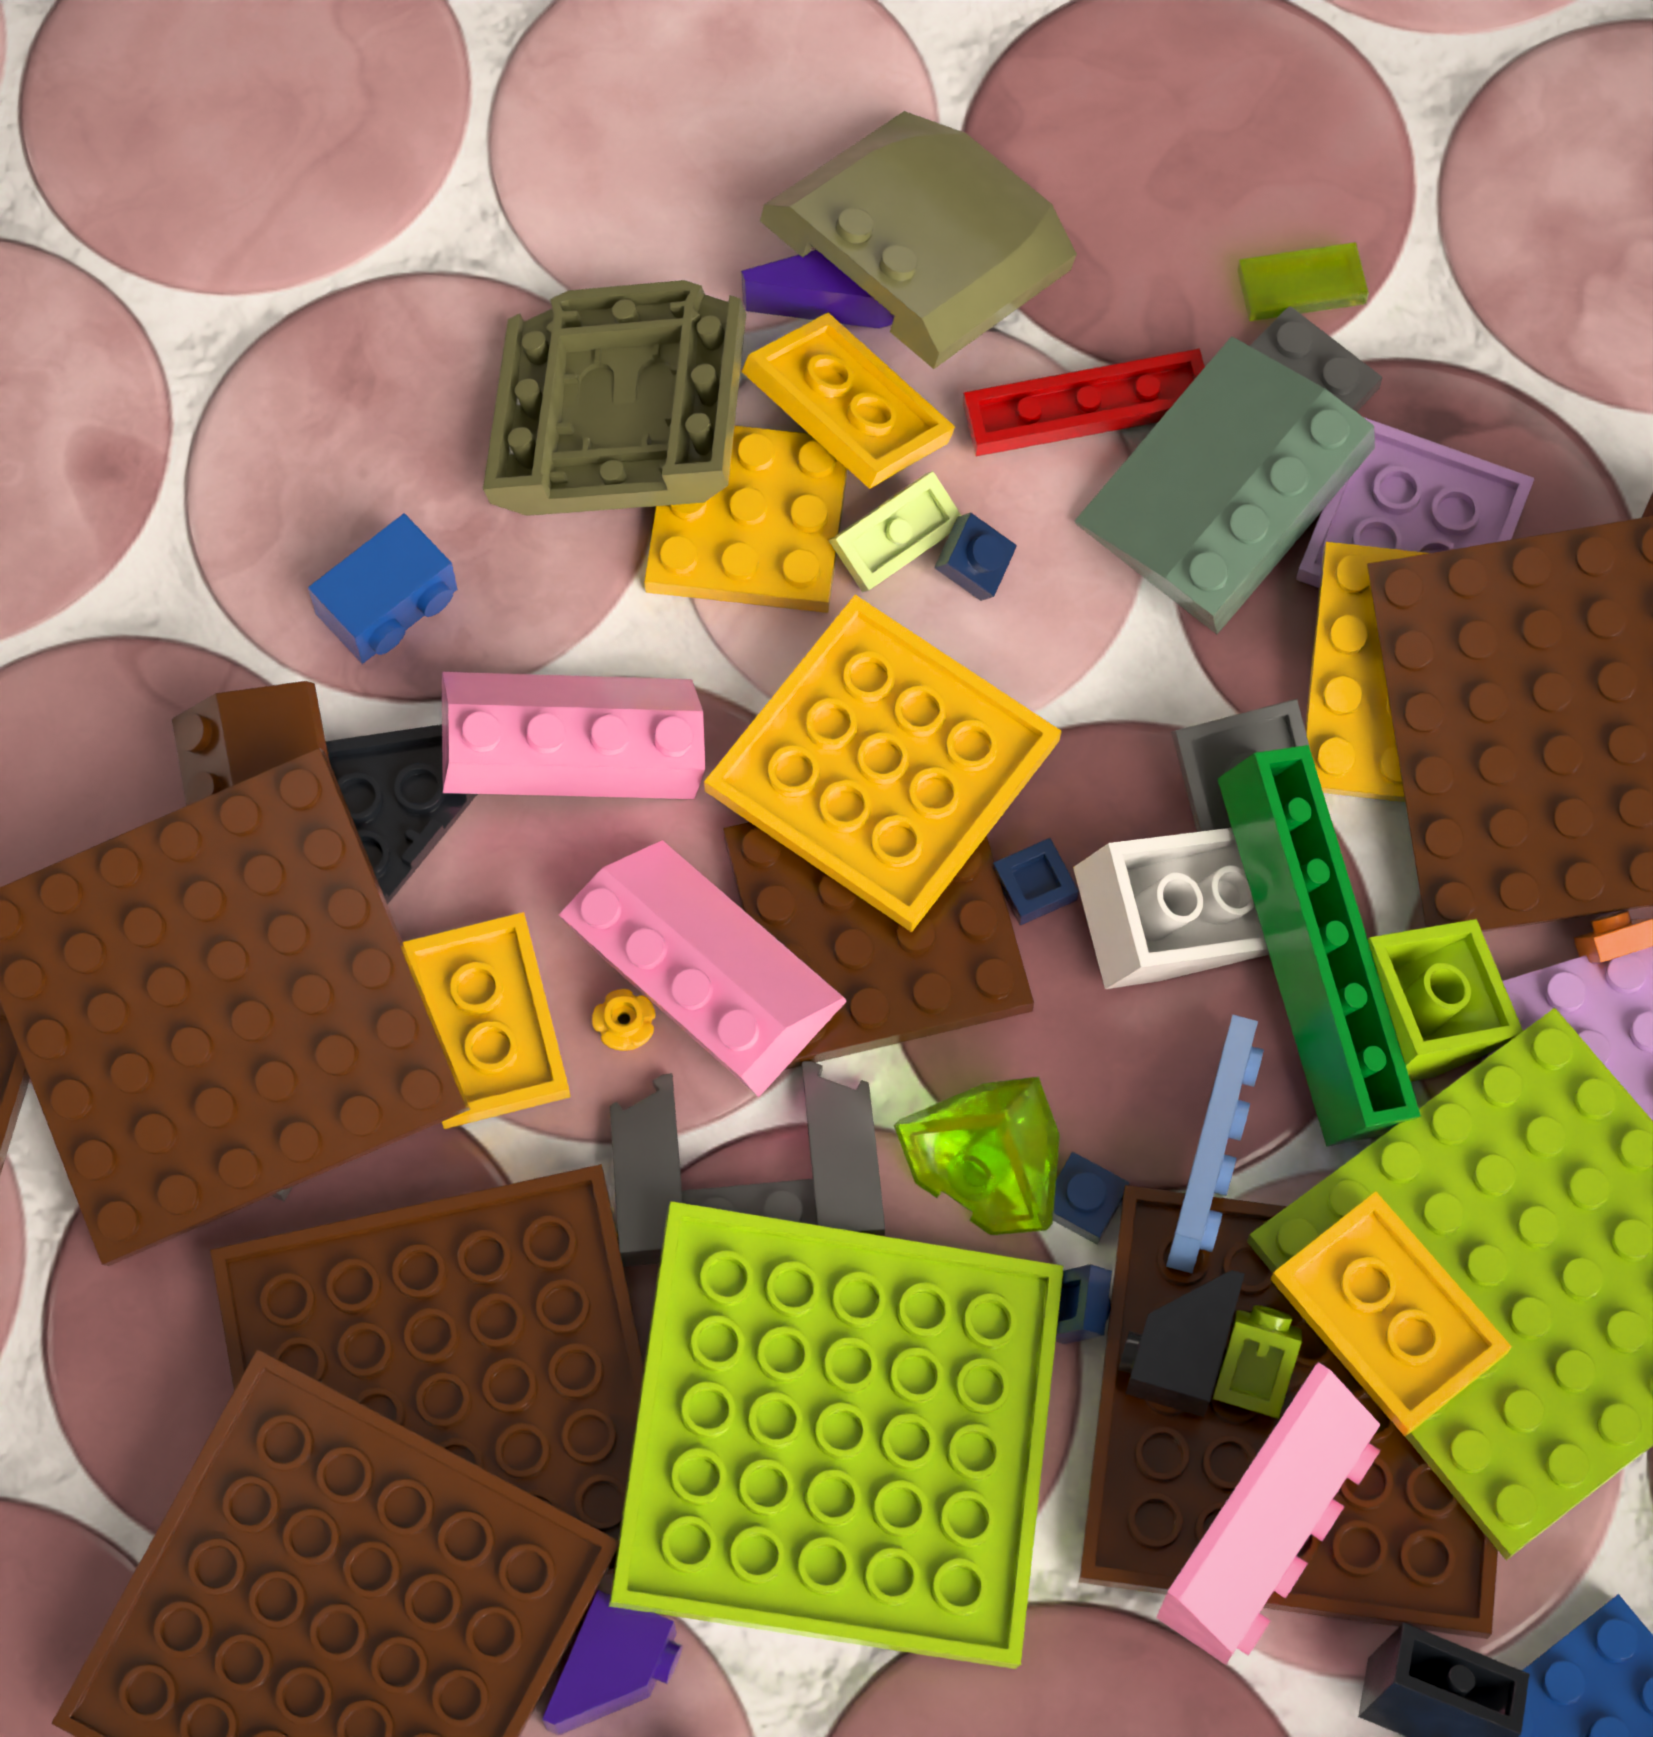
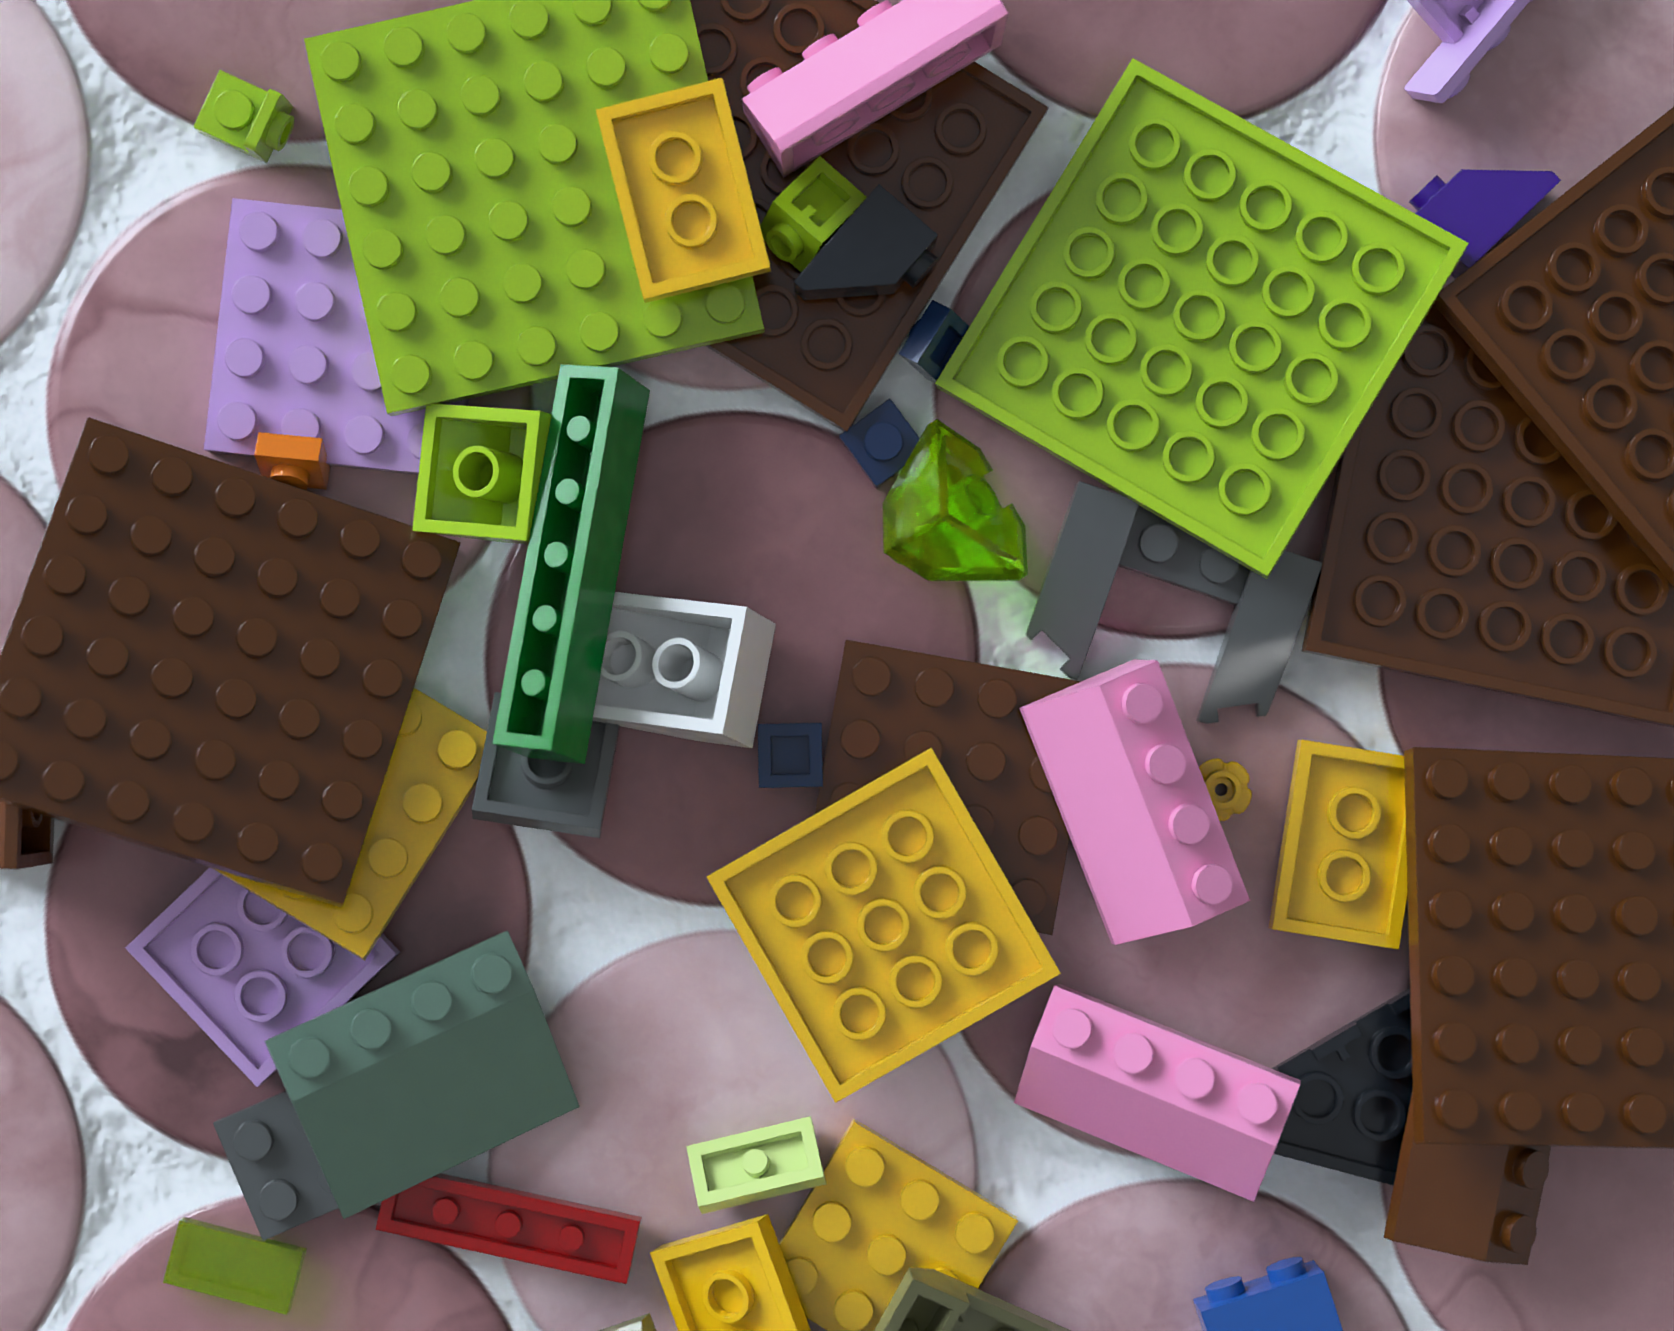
camera: 155 degrees left, 20 degrees up
(975, 556) = (693, 1106): dark blue plate -> none
(1211, 1167) = (769, 402): medium blue plate -> none

